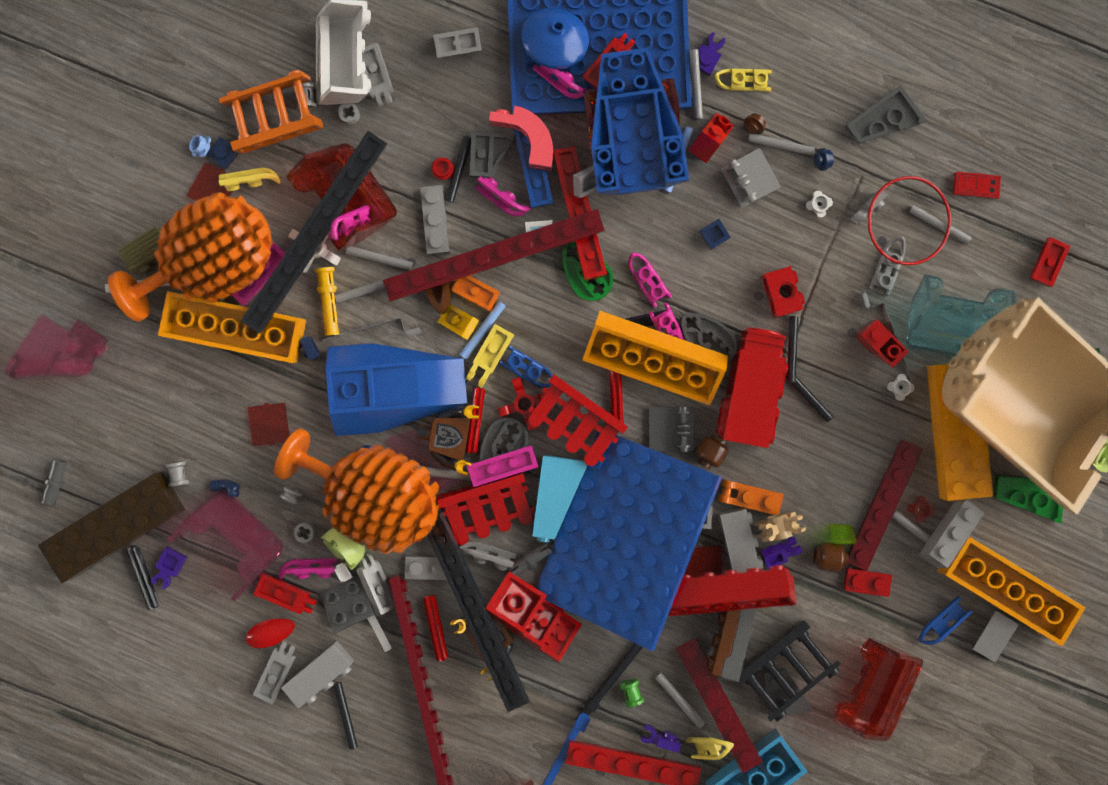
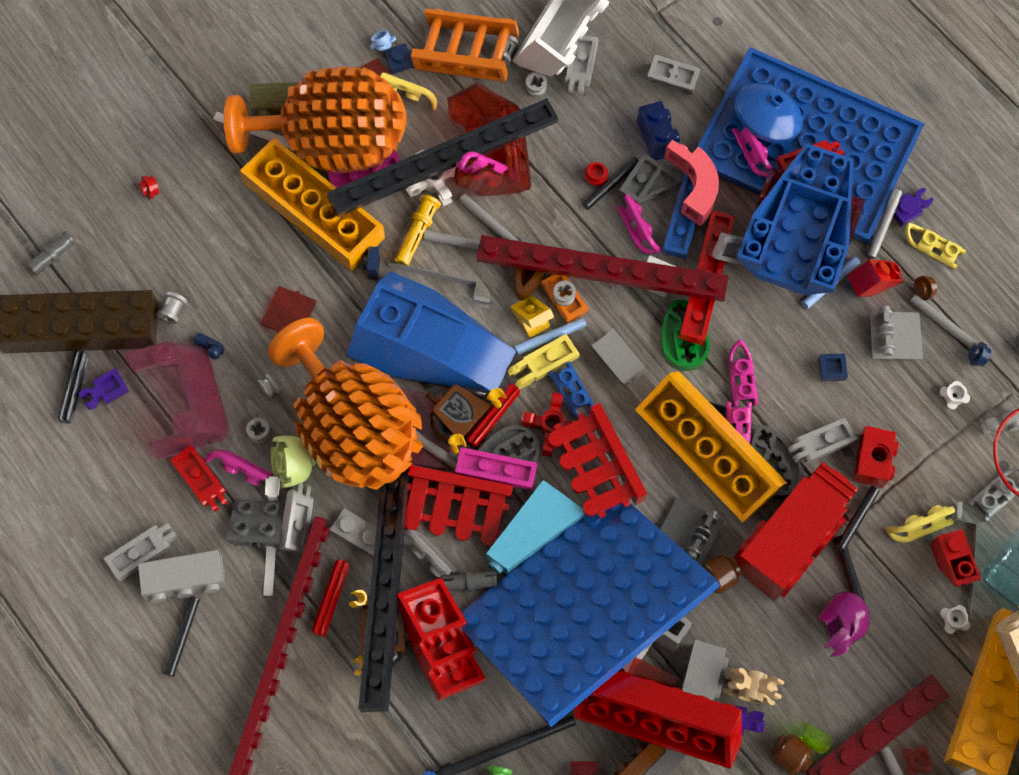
camera: 25 degrees right, 20 degrees down
(55, 352) = (126, 129): clear pink windscreen -> none
(93, 384) = (148, 187): none -> red plate
(269, 632) = (161, 507): red arm -> none
(434, 219) = (562, 214): light grey plate -> none
(470, 286) = (561, 286): none -> light grey bush
(471, 102) = (656, 128): none -> clear blue brick
(546, 320) = (619, 358): none -> light grey hinge
(616, 395) = (652, 463): red axle -> none
(737, 301) = (823, 441): none -> light grey hinge
(751, 497) = (738, 646): orange plate -> none
(821, 434) = (846, 620): none -> magenta helmet
(840, 330) = (914, 524): none -> light yellow piece

